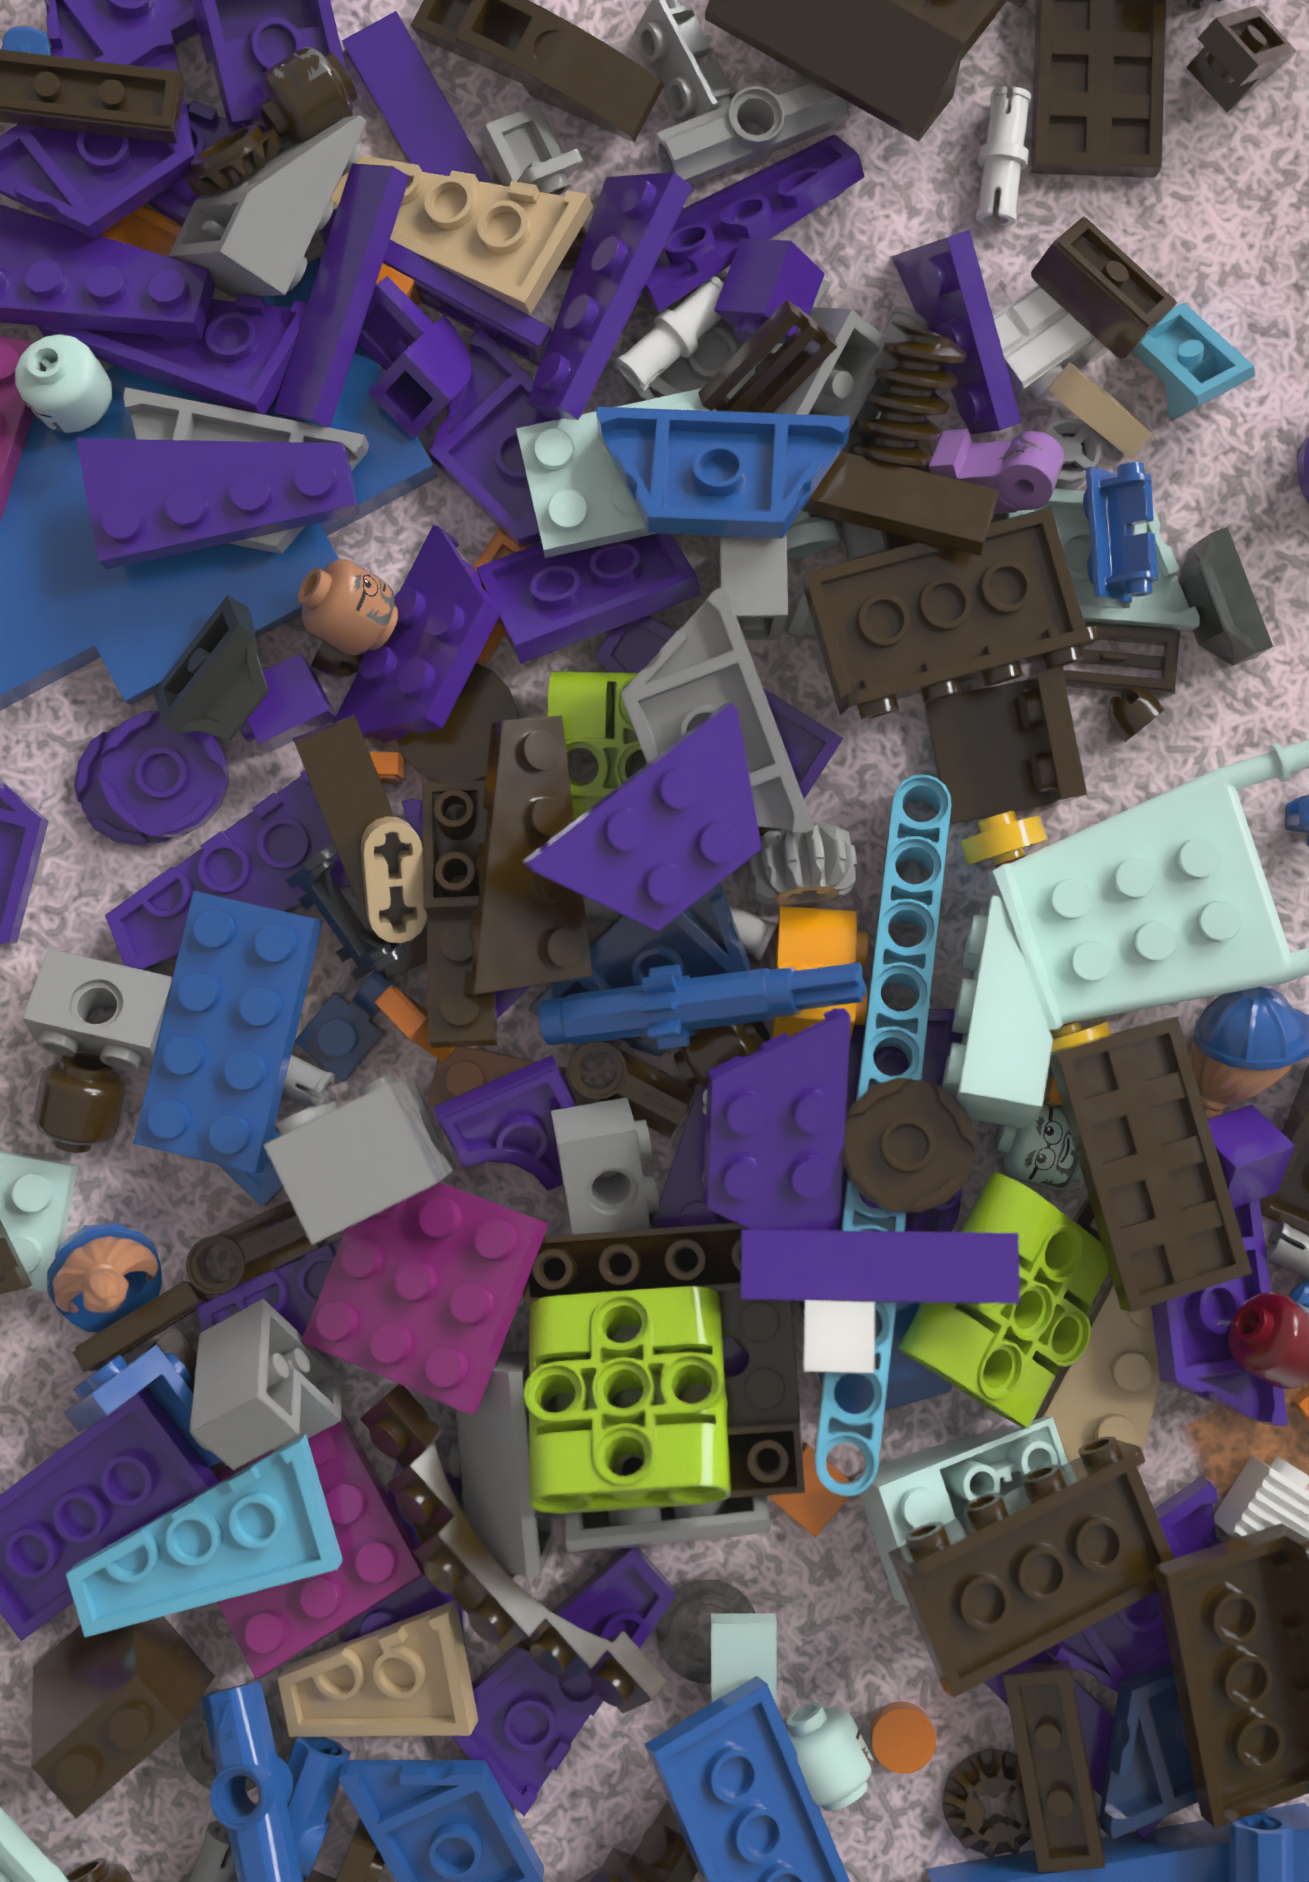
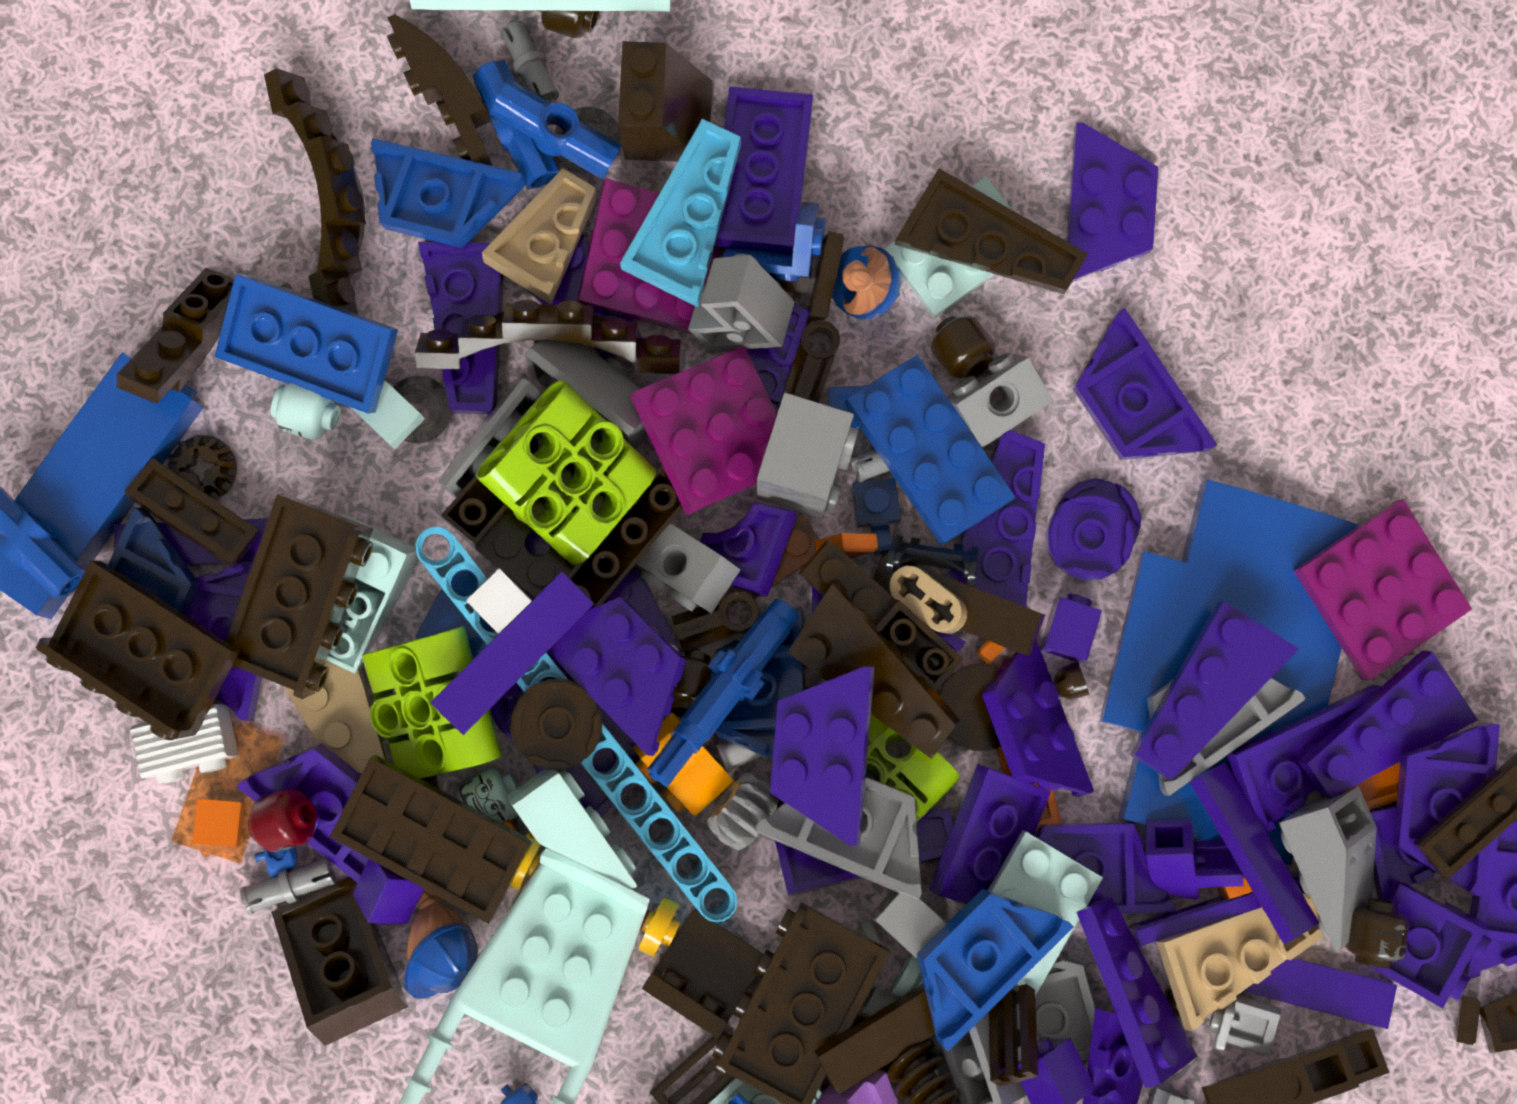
camera: 130 degrees right, 5 degrees down
(63, 383) = (1337, 670): light aqua head -> none
(216, 677) = (1112, 606): pearl dark grey slope -> none
(232, 159) = (1377, 864): dark brown gear -> none
(347, 607) = (1088, 705): nougat head -> none
(672, 337) = (1077, 1004): white pin -> none
(818, 1503) = (429, 515): orange tile -> none
(902, 1737) = (275, 454): orange tile -> none
(1132, 711) = (657, 1055): dark brown hinge -> none

